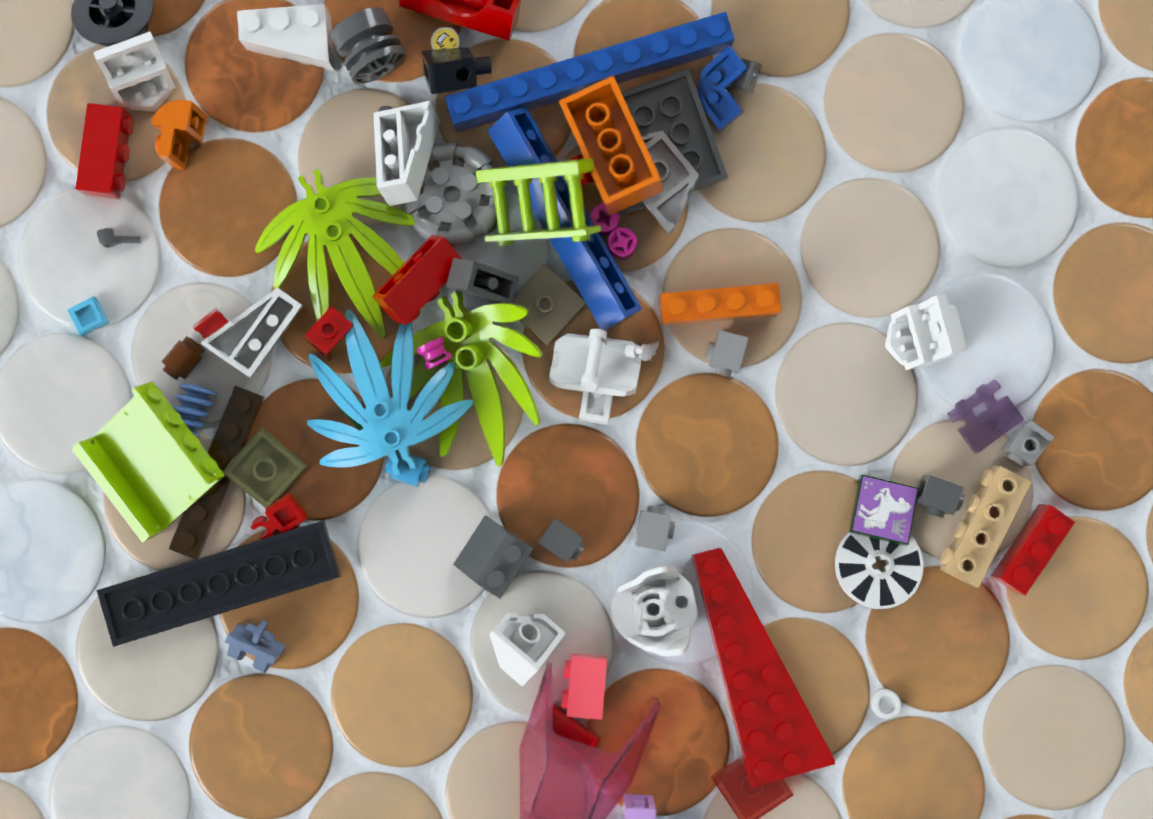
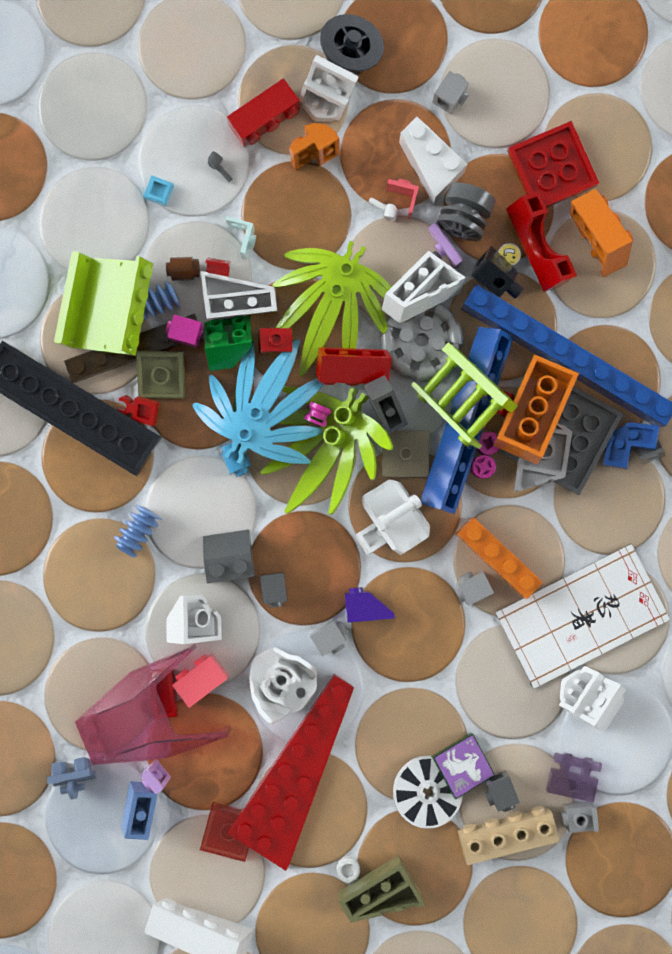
camera: 45 degrees right, 0 degrees up
(211, 270) = (249, 239): none -> light aqua bracket
(243, 408) = (184, 331): none -> dark pink brick
(256, 642) = (54, 462): sand blue hips -> none
(289, 378) = (227, 341): none -> green slope
(294, 82) = (406, 188): none -> coral bracket
(303, 114) = (390, 209): none -> white hand
(383, 94) = (444, 246): none -> lavender plate
(391, 622) = (136, 531): none -> medium blue piece
(644, 352) = (429, 538): white piece -> none
(654, 470) = (365, 607): none -> dark purple slope
(843, 275) = (582, 616): none -> white piece
(932, 691) = (380, 892): none -> olive wedge
(1032, 549) = (519, 877): red brick -> none

